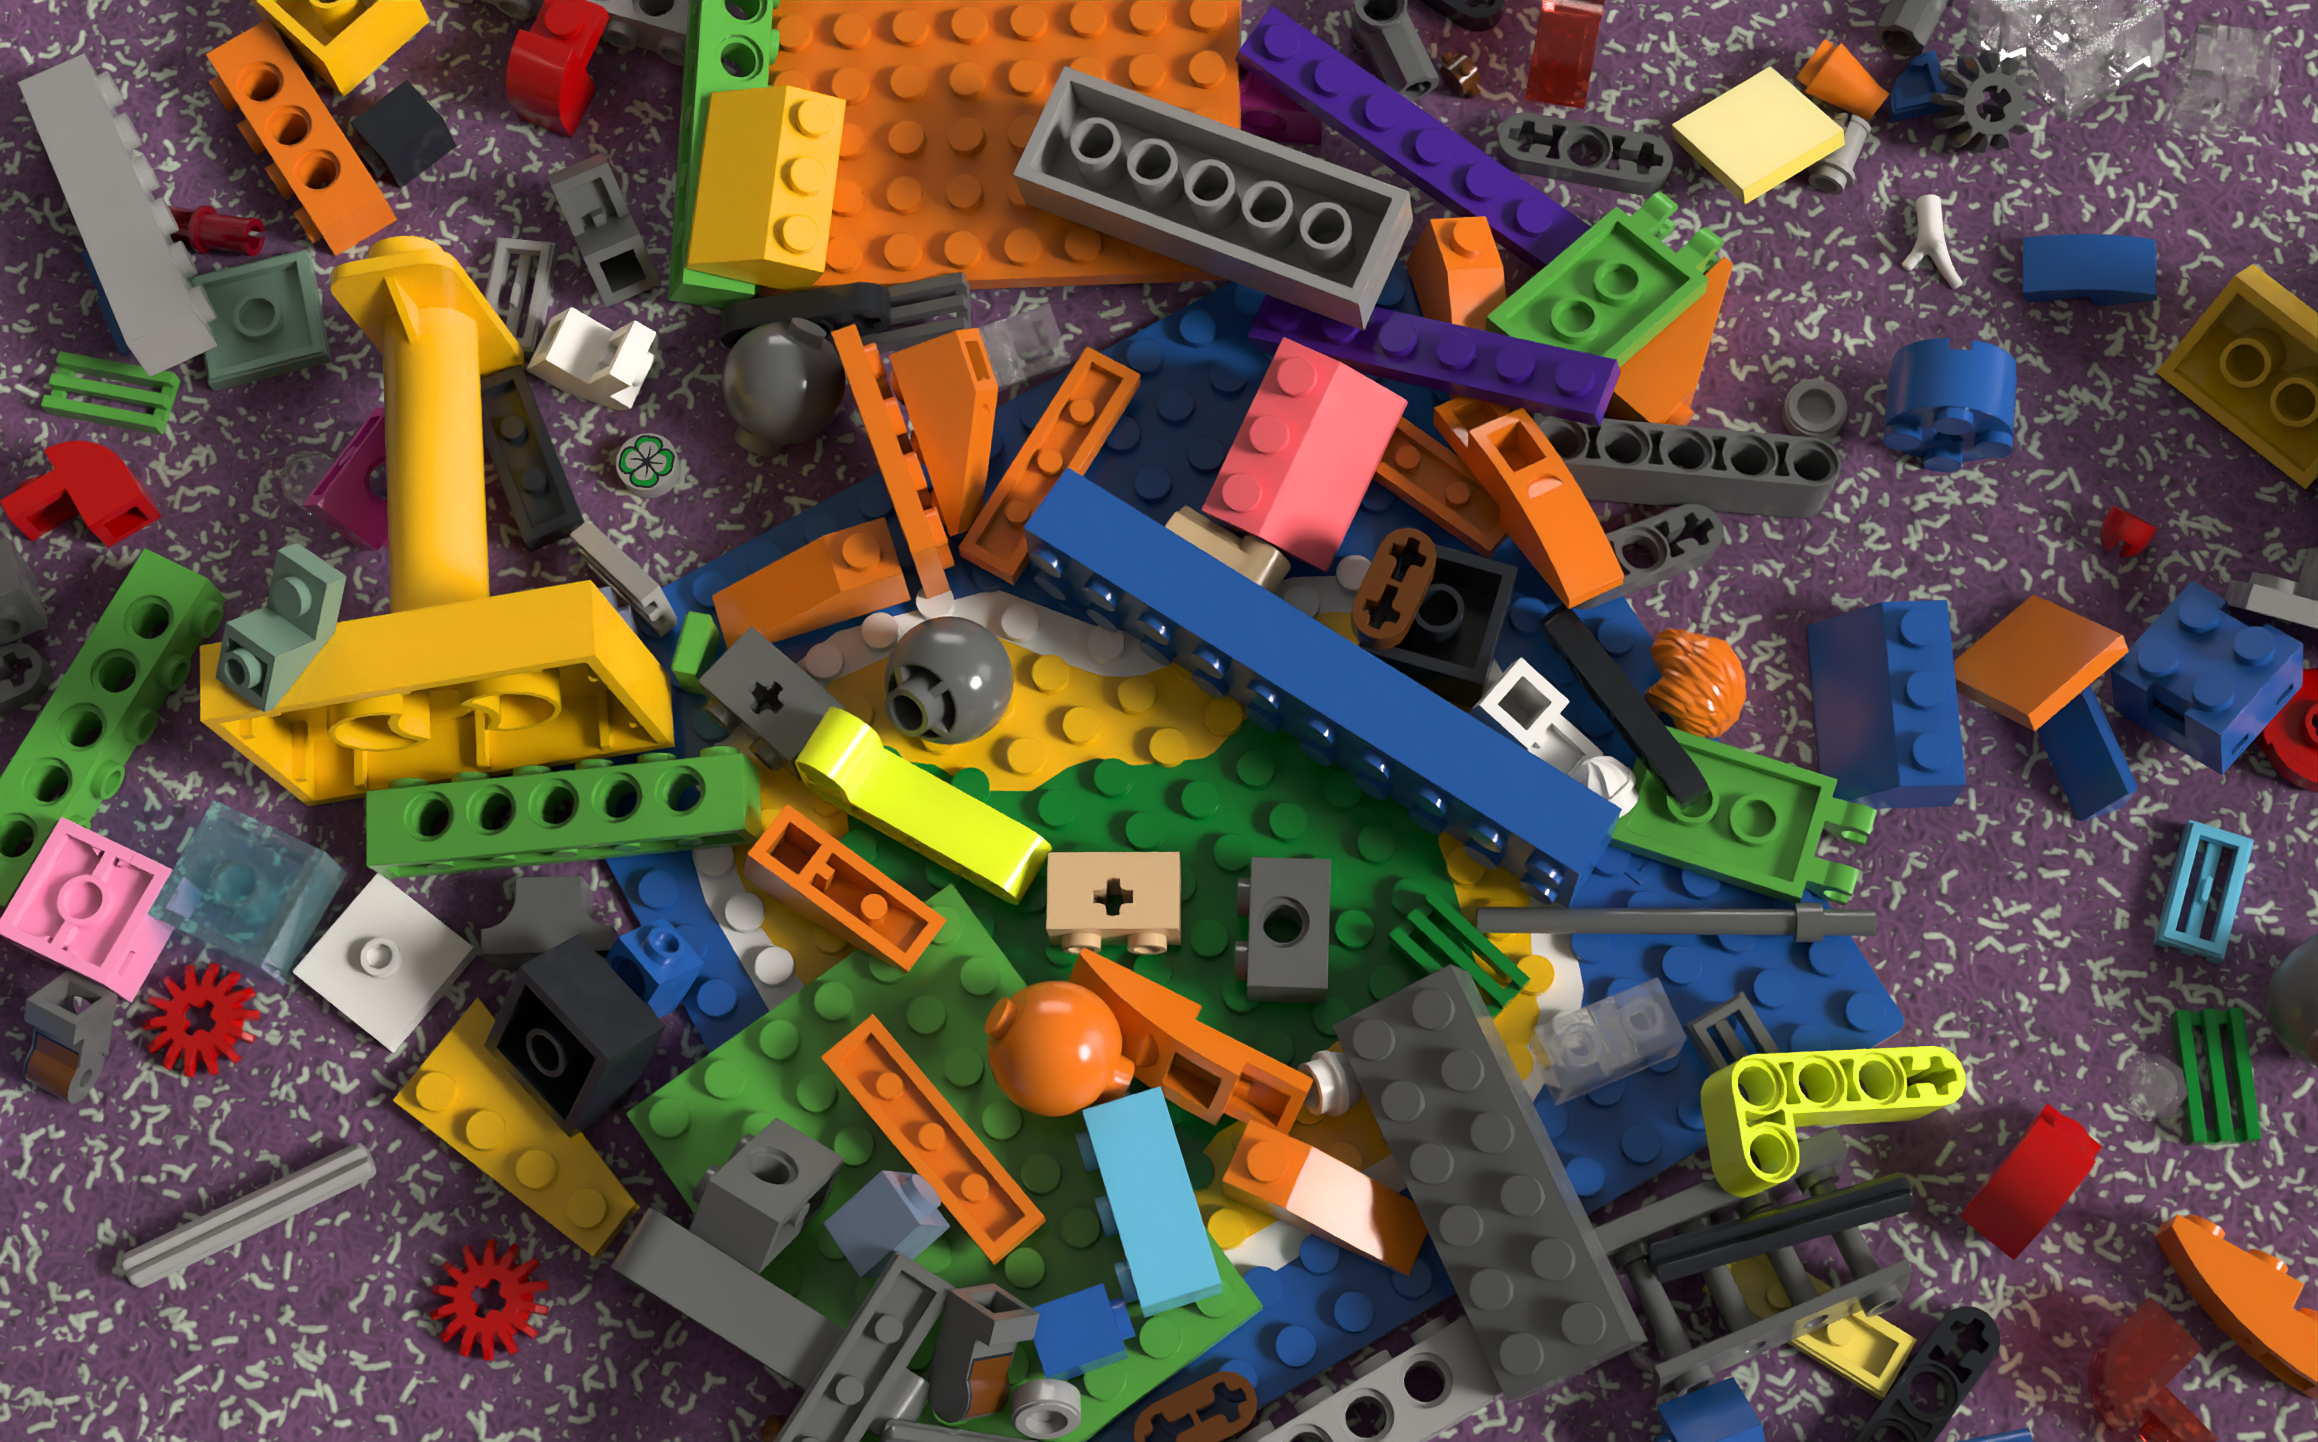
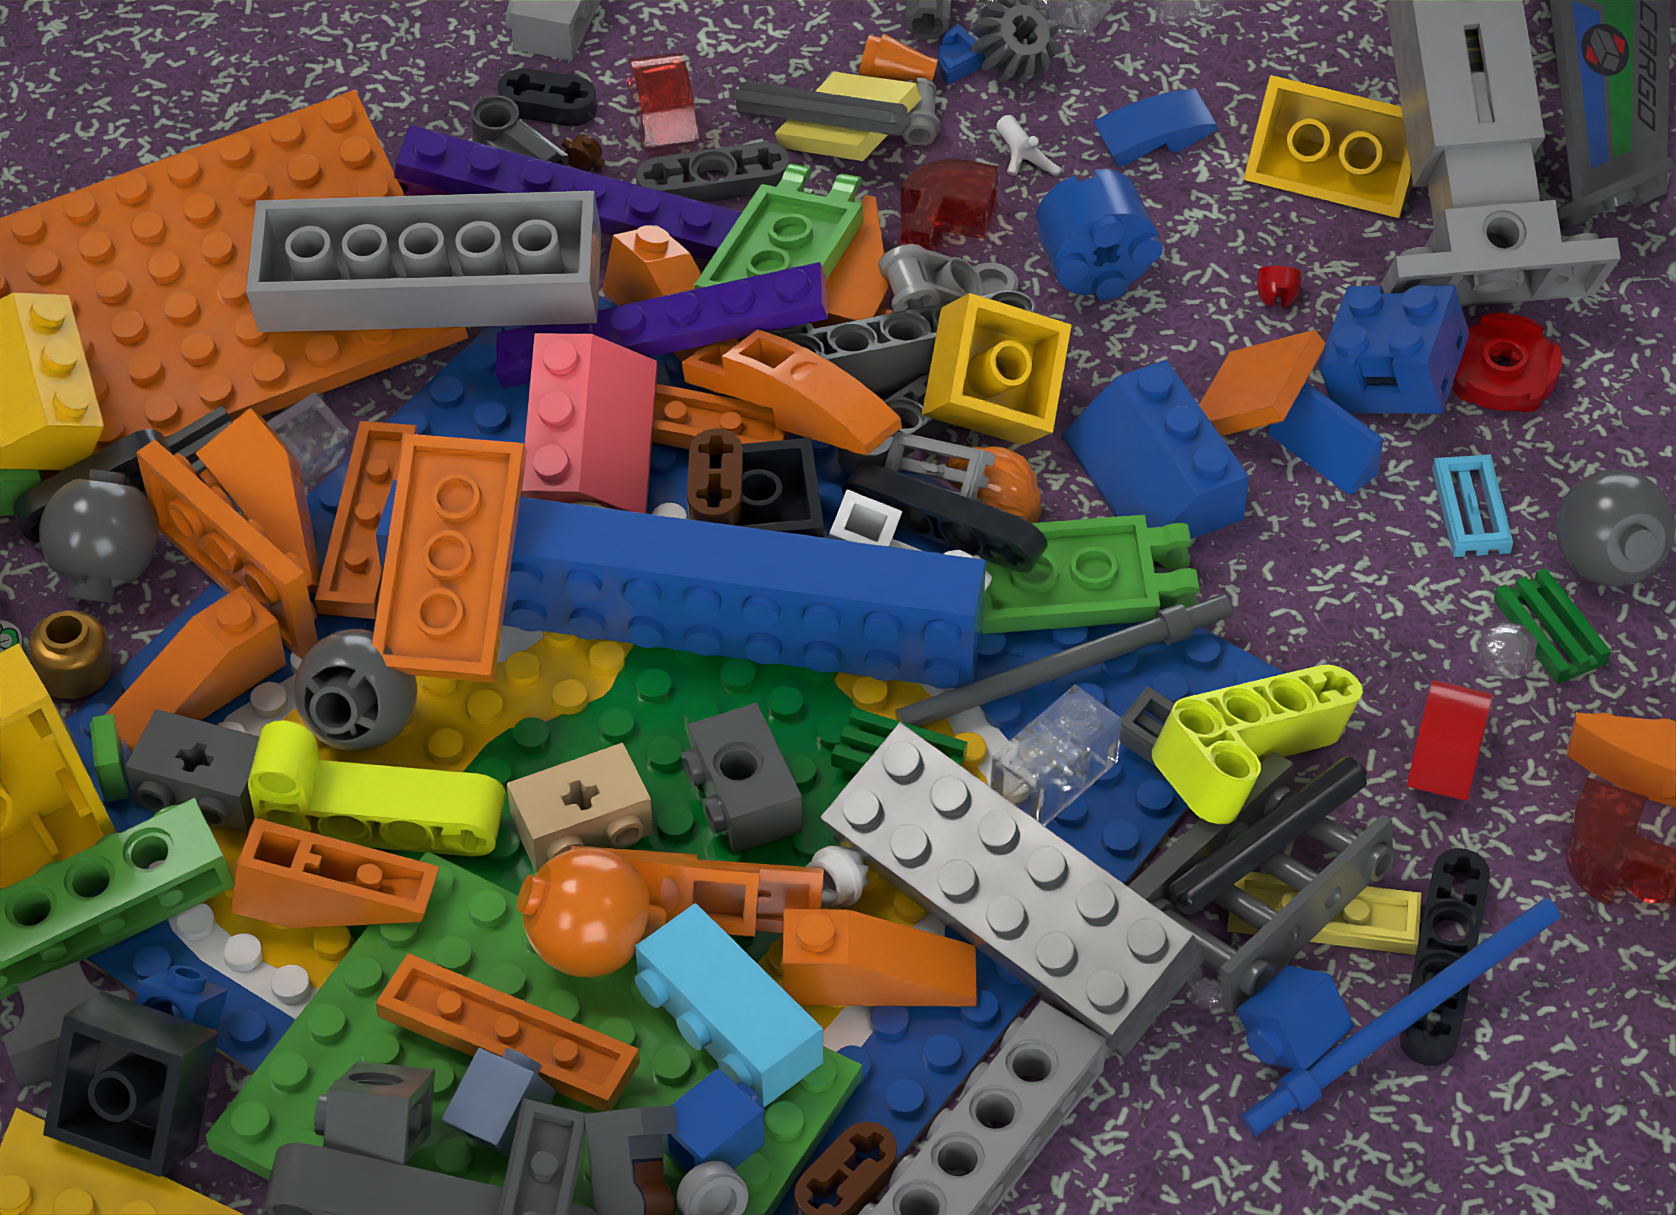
camera: 30 degrees left, 20 degrees down
(708, 511) = (70, 654): none -> pearl gold head
(1080, 590) = (449, 556): none -> orange plate
(1668, 674) = (971, 479): none -> light grey tile
(1729, 123) = (822, 108): none -> dark grey axle
(1742, 399) = (927, 277): none -> light grey piece
(1757, 546) = (996, 369): none -> yellow brick
(1810, 280) = (949, 198): none -> clear red brick

